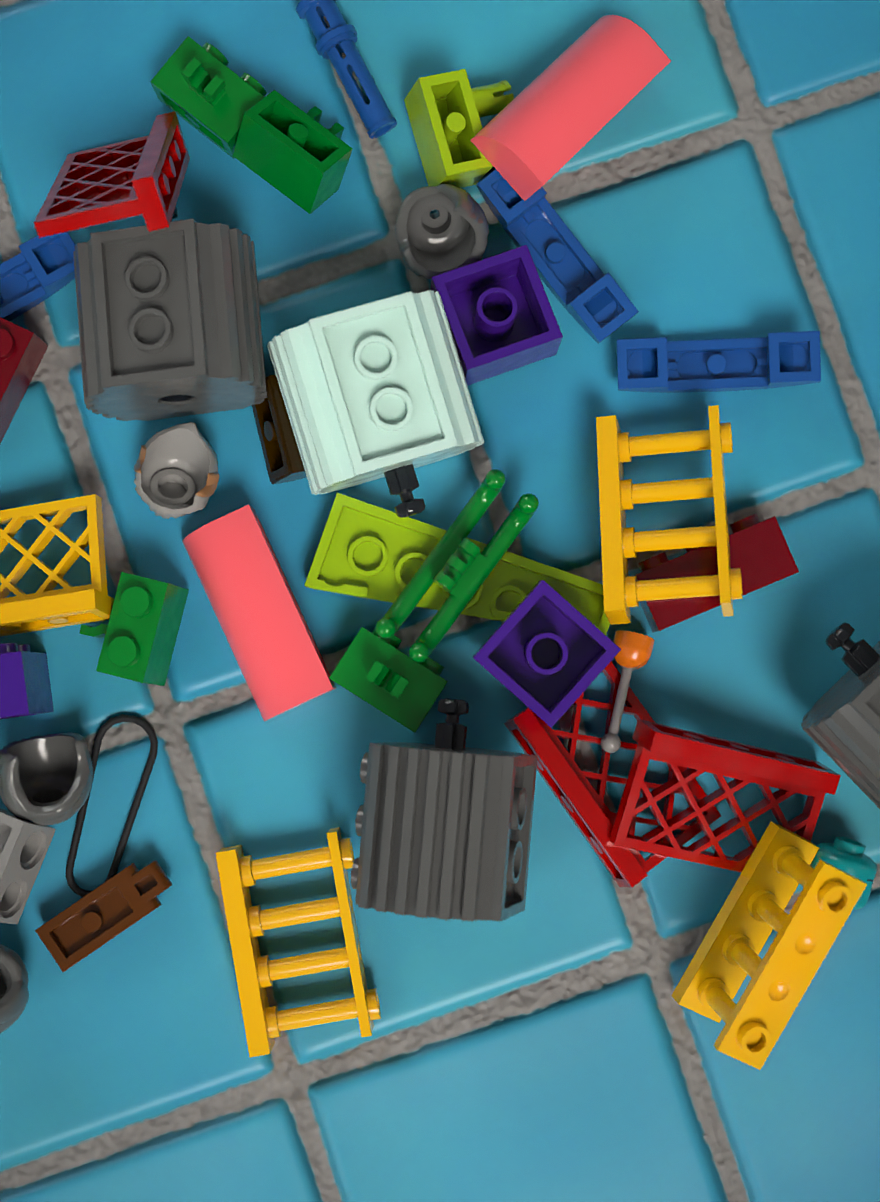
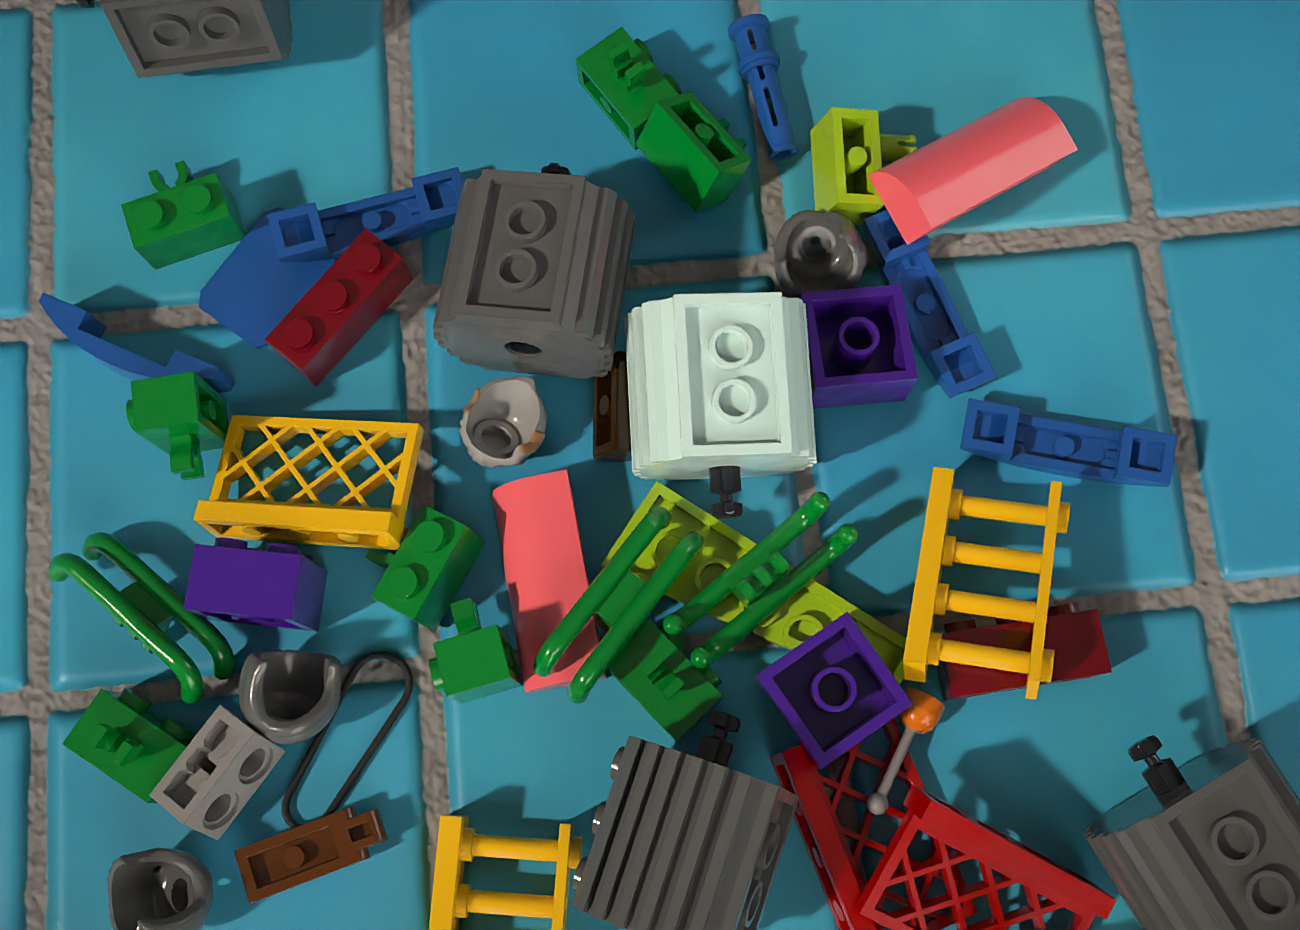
camera: 15 degrees right, 10 degrees down
(119, 182) = (550, 135): red fence -> none
(210, 705) = (476, 660): none -> green brick
(329, 619) = (618, 601): none -> green piece

